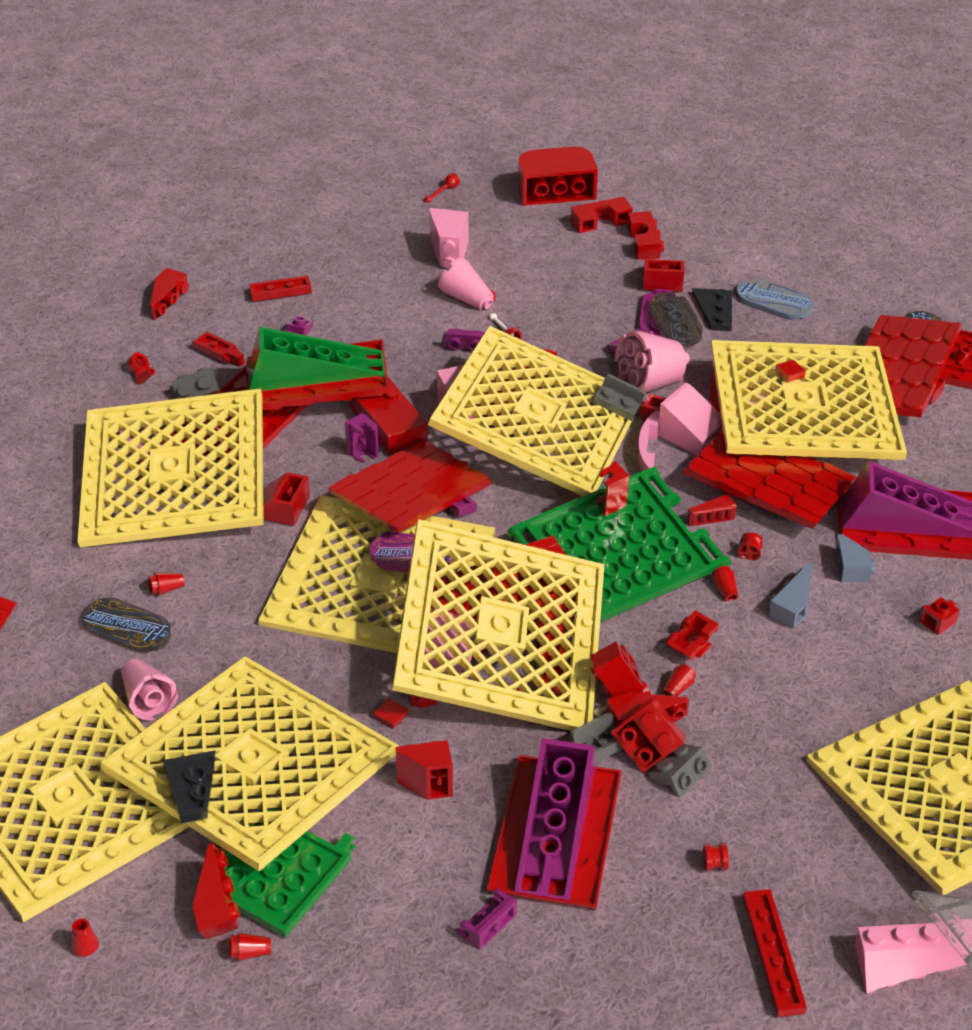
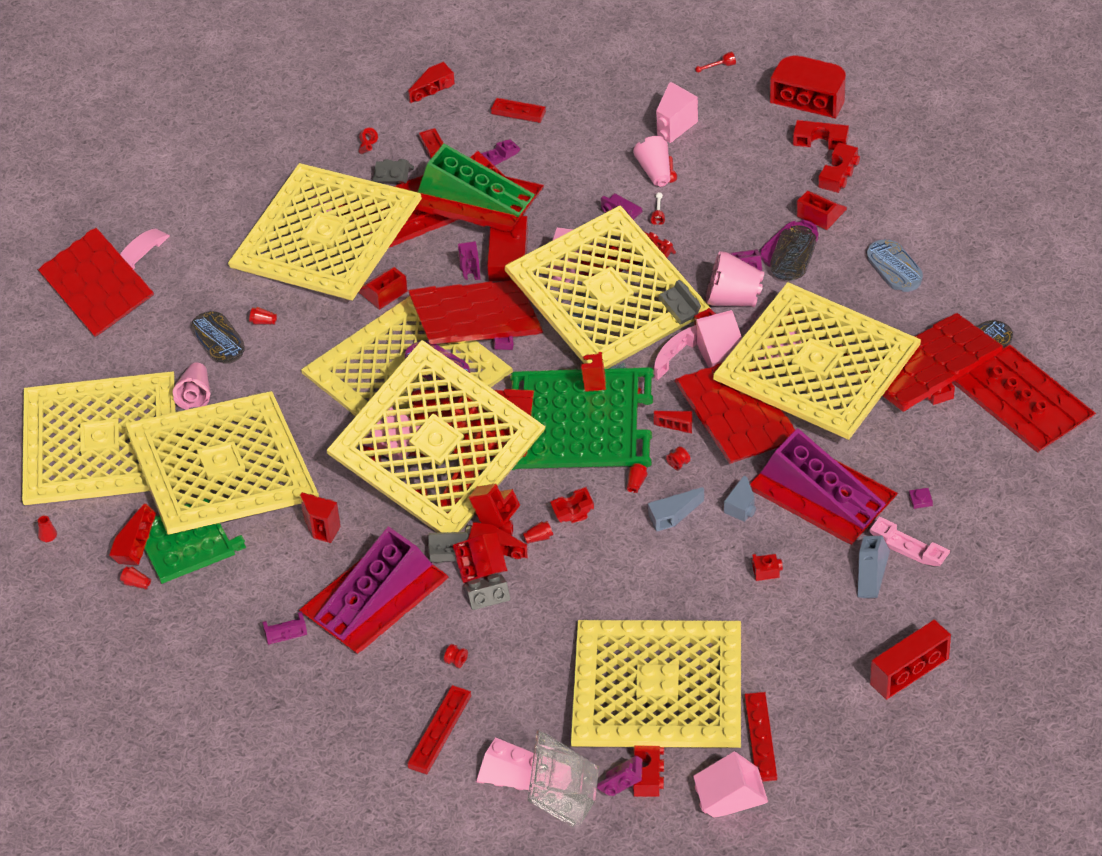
camera: 35 degrees right, 5 degrees up
(191, 784) = (163, 461): black wing -> none
(390, 713) = (335, 471): red tile -> none
(716, 307) = (840, 254): black wing -> none
(790, 370) = (822, 332): red tile -> none

